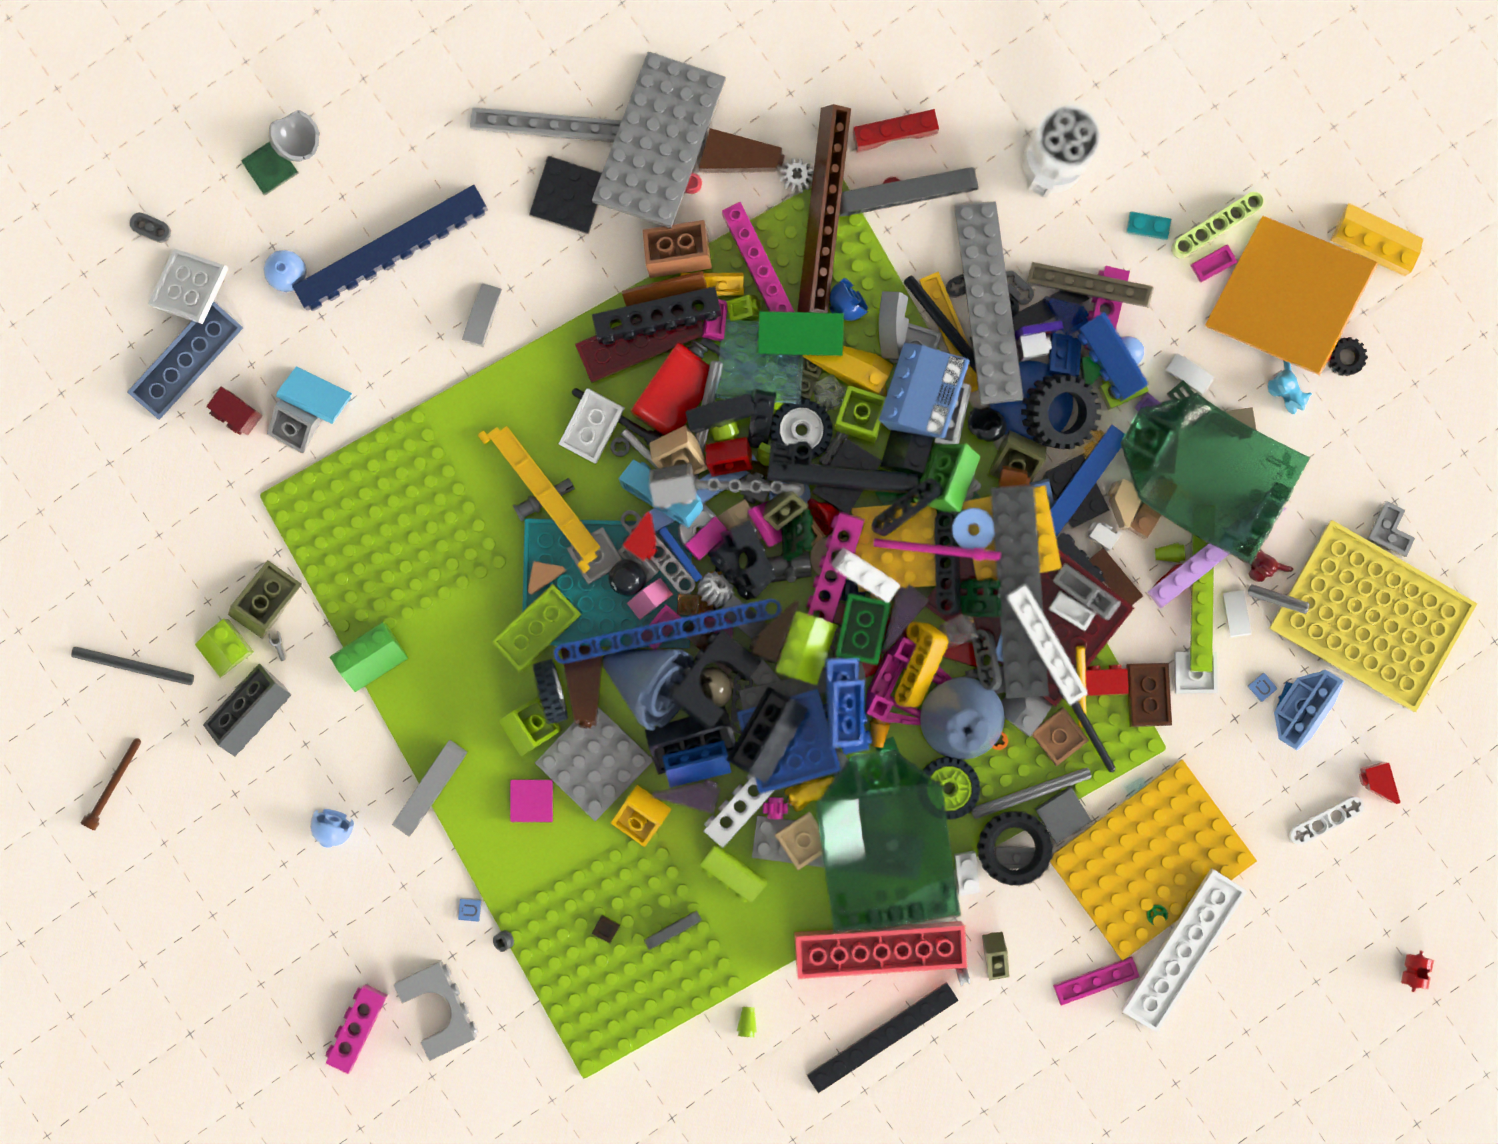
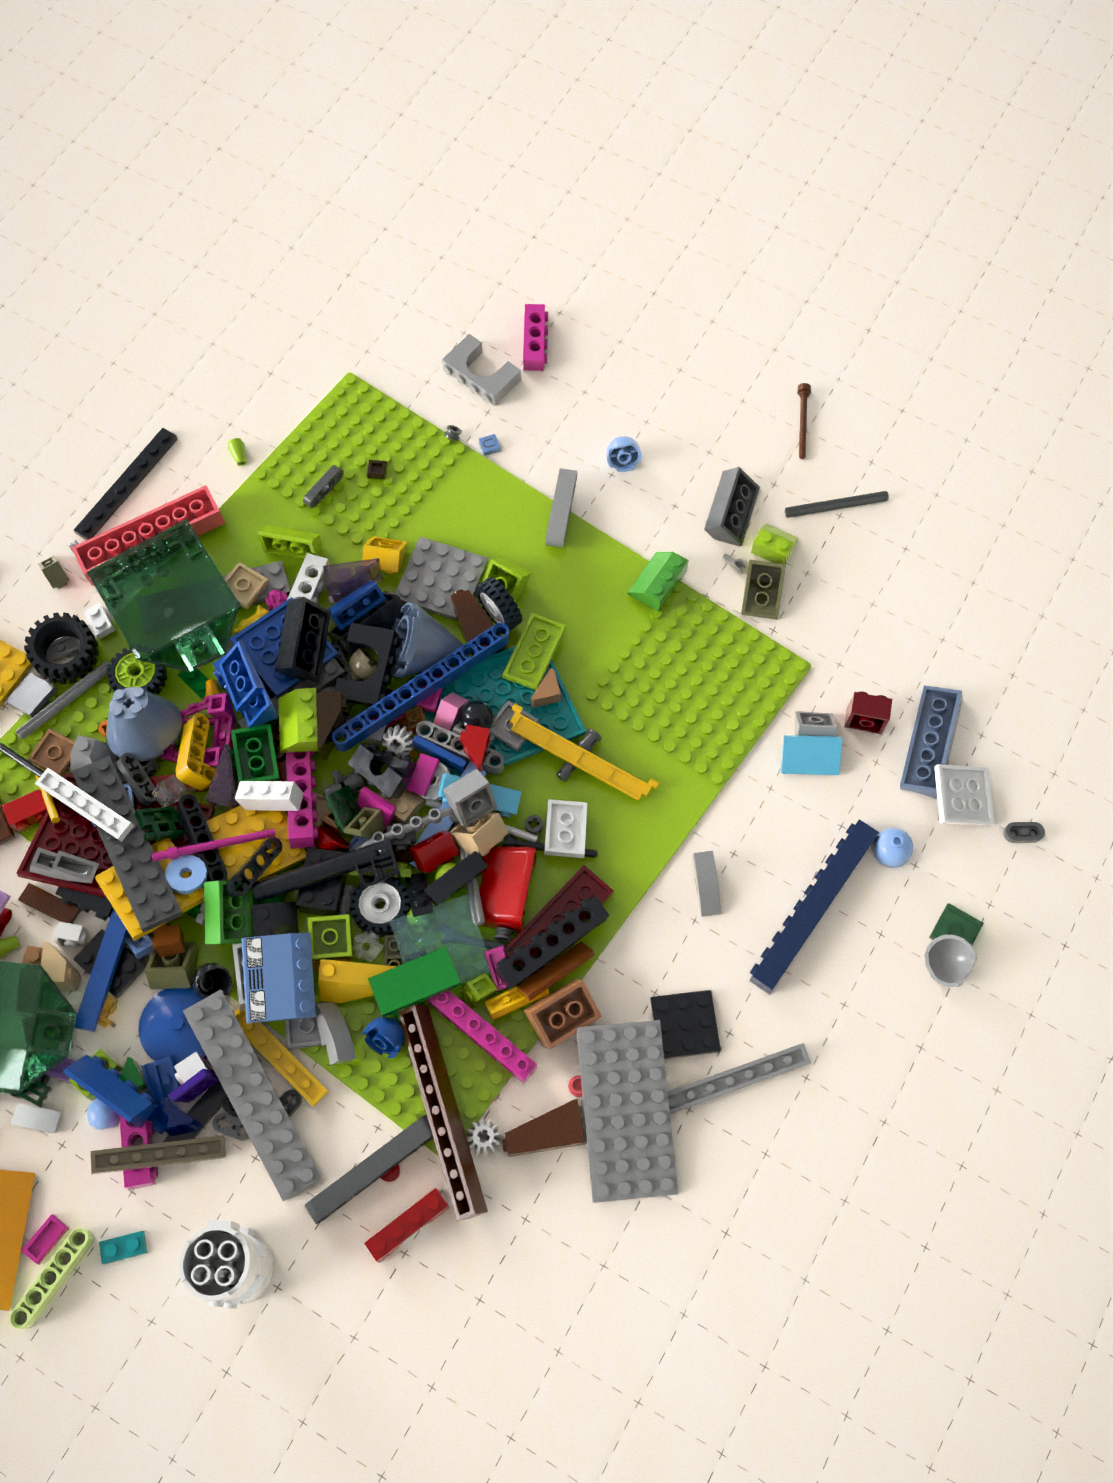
camera: 155 degrees right, 20 degrees down
(531, 800) = (477, 532): dark pink tile -> none
(940, 319) = (292, 1059): black axle -> none
(1039, 404) = (163, 1031): black tyre -> none
(1072, 610) = (77, 847): white tile -> none

